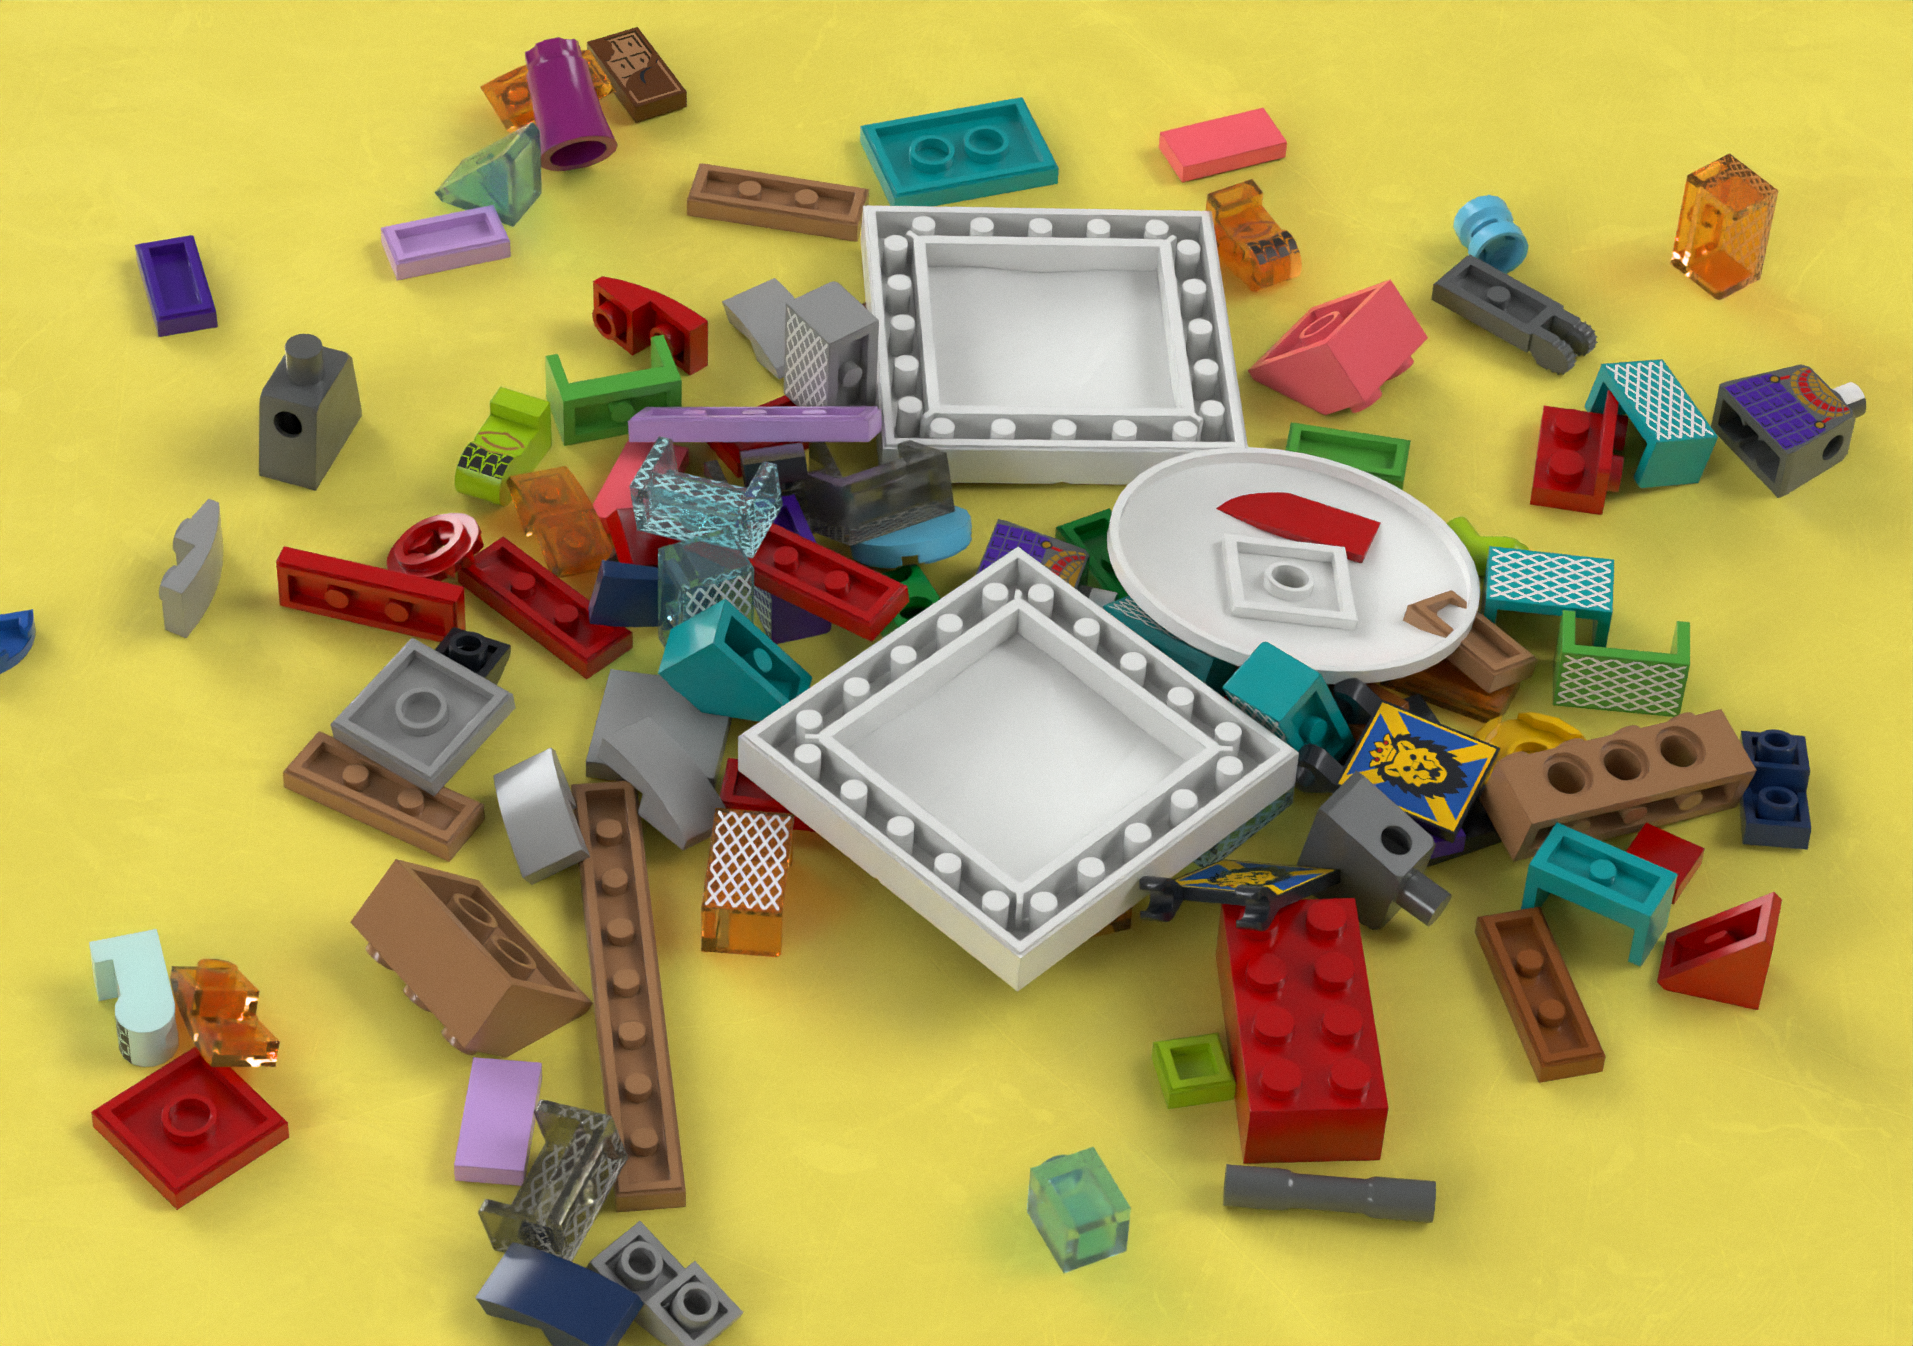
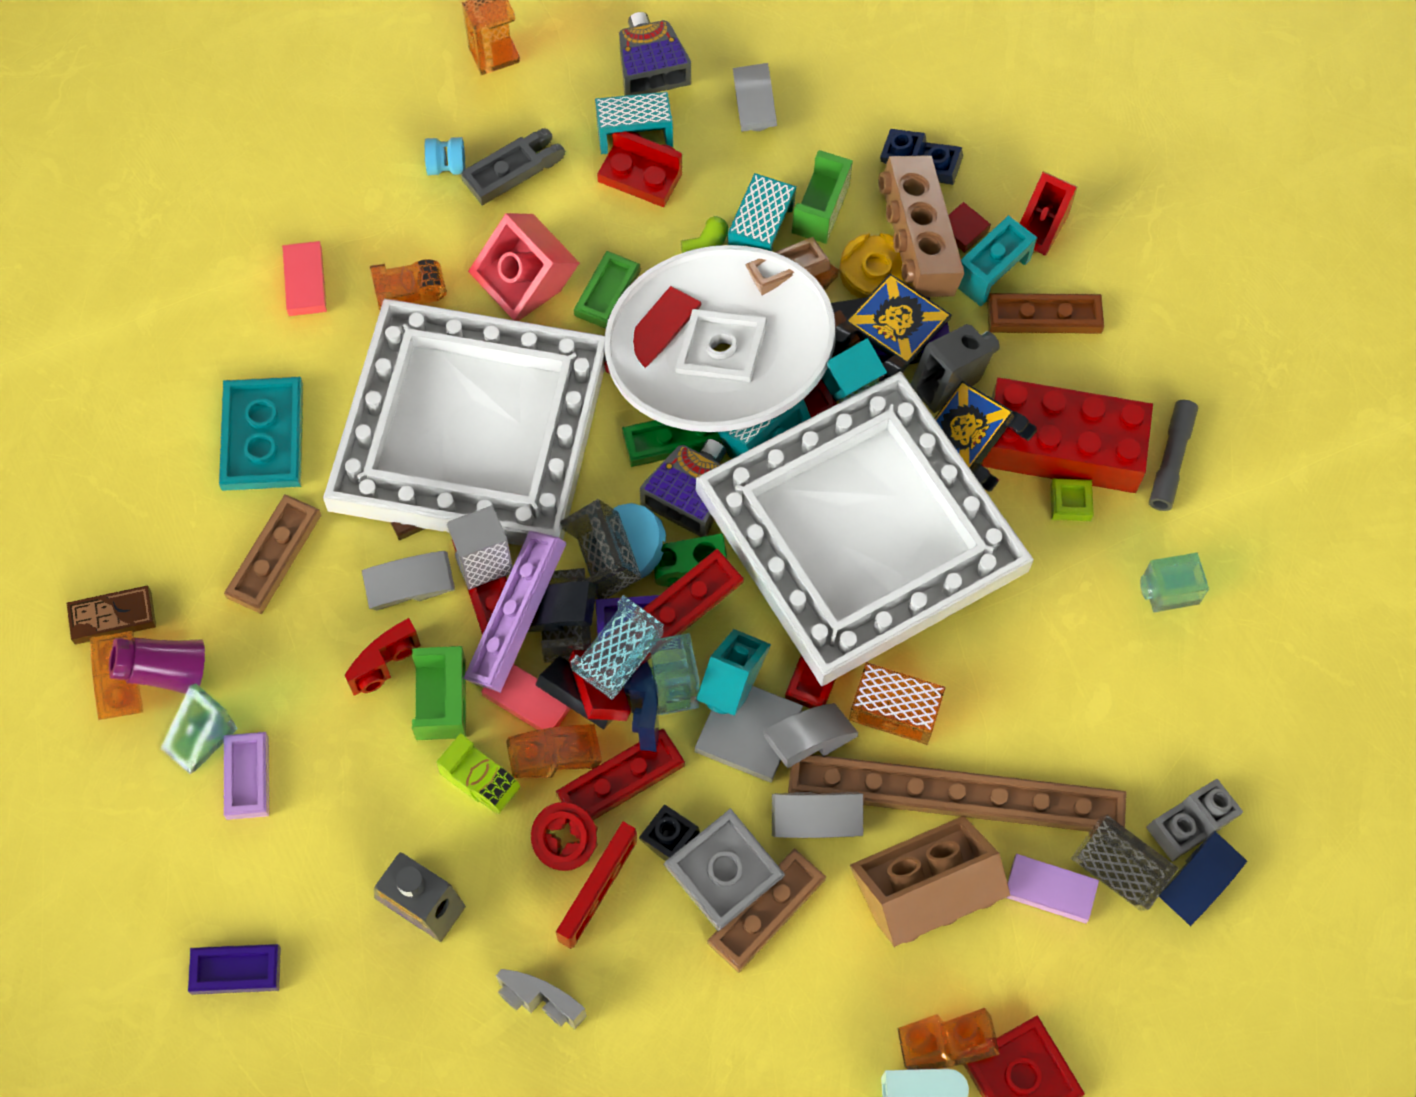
camera: 75 degrees left, 20 degrees up
(1770, 557) = (754, 97): none -> light grey slope

